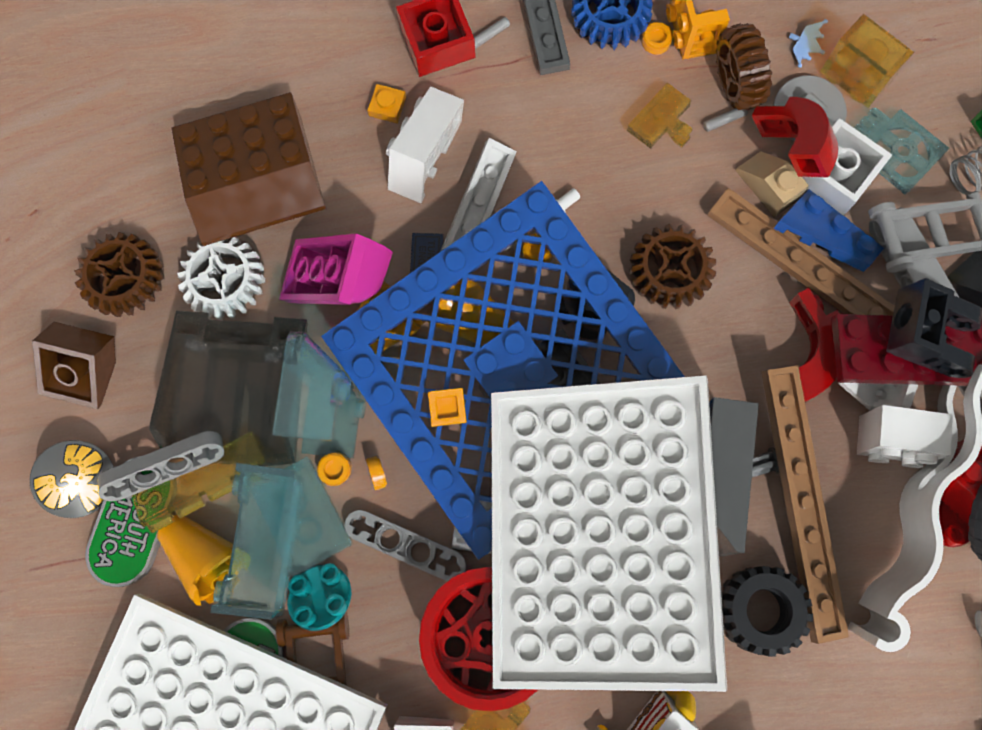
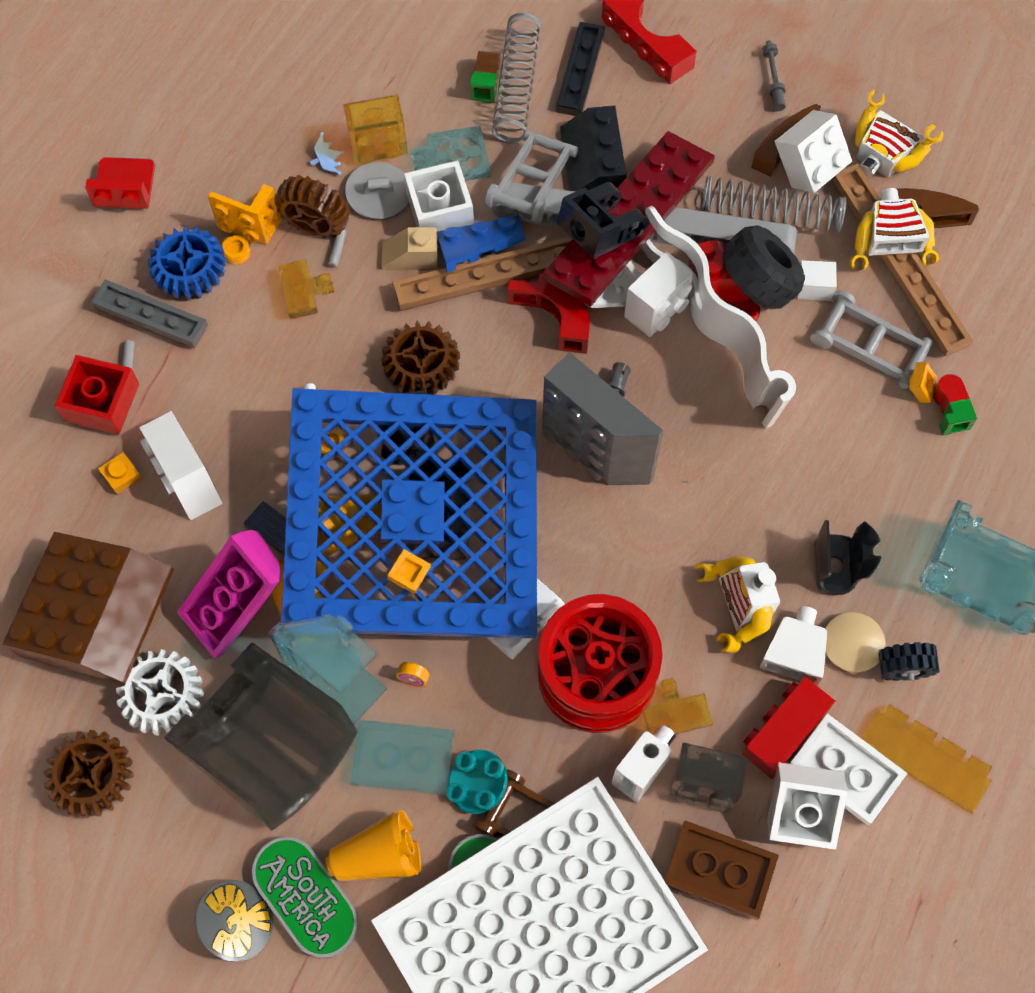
camera: 60 degrees left, 10 degrees down
(73, 364) = (136, 860): reddish brown slope -> none
(124, 481) = (269, 881): light grey beam -> none
(186, 491) = (313, 820): clear yellow windscreen -> none
(262, 542) = (402, 779): clear light blue windscreen -> none
(334, 468) = (385, 706): light orange tile -> none
(406, 543) = (482, 687): light grey beam -> none
(481, 190) = (255, 454): white plate -> none
(606, 539) = (584, 516): white plate -> none
(792, 606) = (716, 447): black tyre -> none
(801, 118) = (394, 193): red arch -> none
(804, 503) = (660, 390): medium nougat plate -> none

